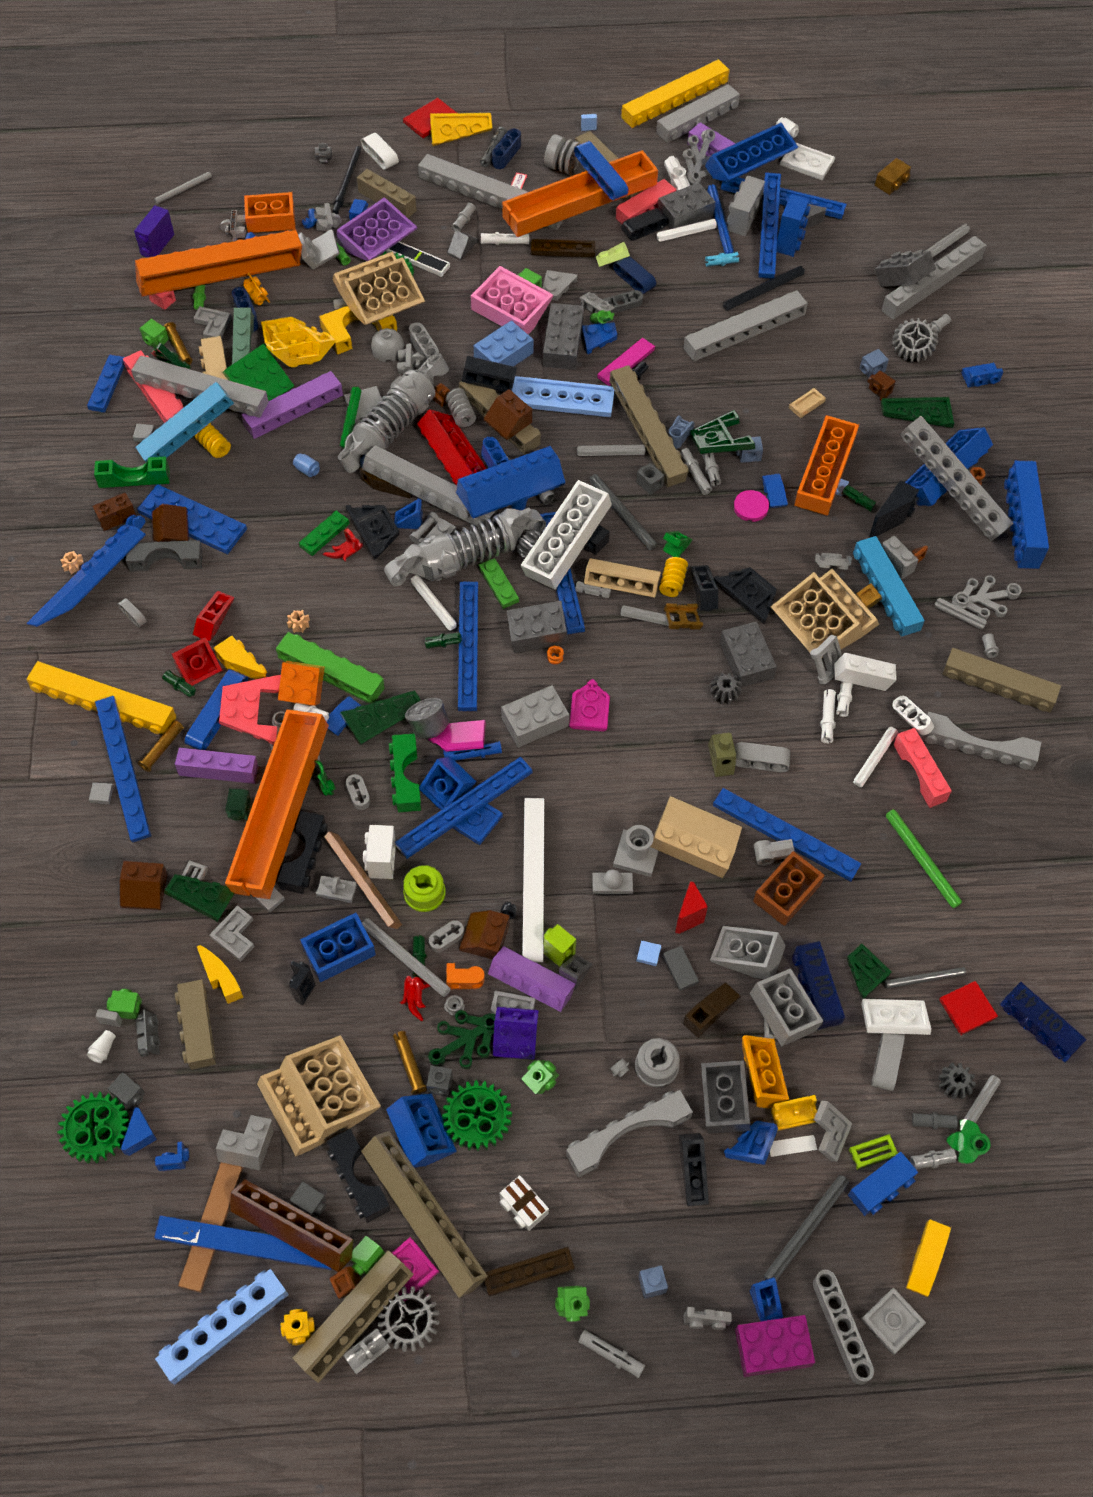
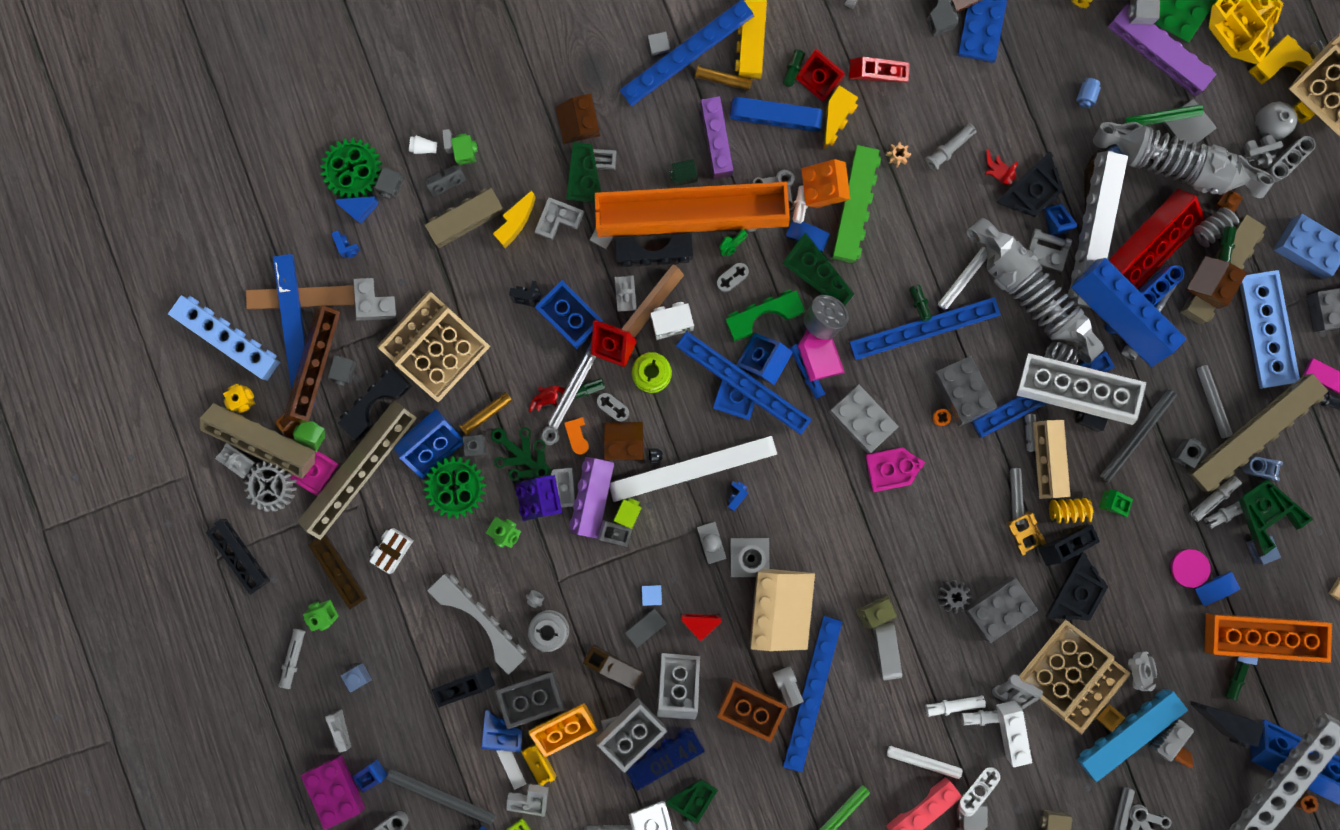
camera: 70 degrees right, 25 degrees up
(241, 707) = (781, 137): coral wing -> none
(311, 585) = (944, 152): none -> light grey pin
(324, 533) = (1012, 141): green plate -> none
(382, 908) = (612, 343): none -> red slope
(474, 1376) = (241, 553): none -> black fence
(479, 400) = (1227, 244): none -> dark green axle
(488, 374) = (1265, 243): black brick -> none
(498, 583) = (1008, 335): bright green plate -> none
(574, 843) = (736, 499): none -> blue bracket

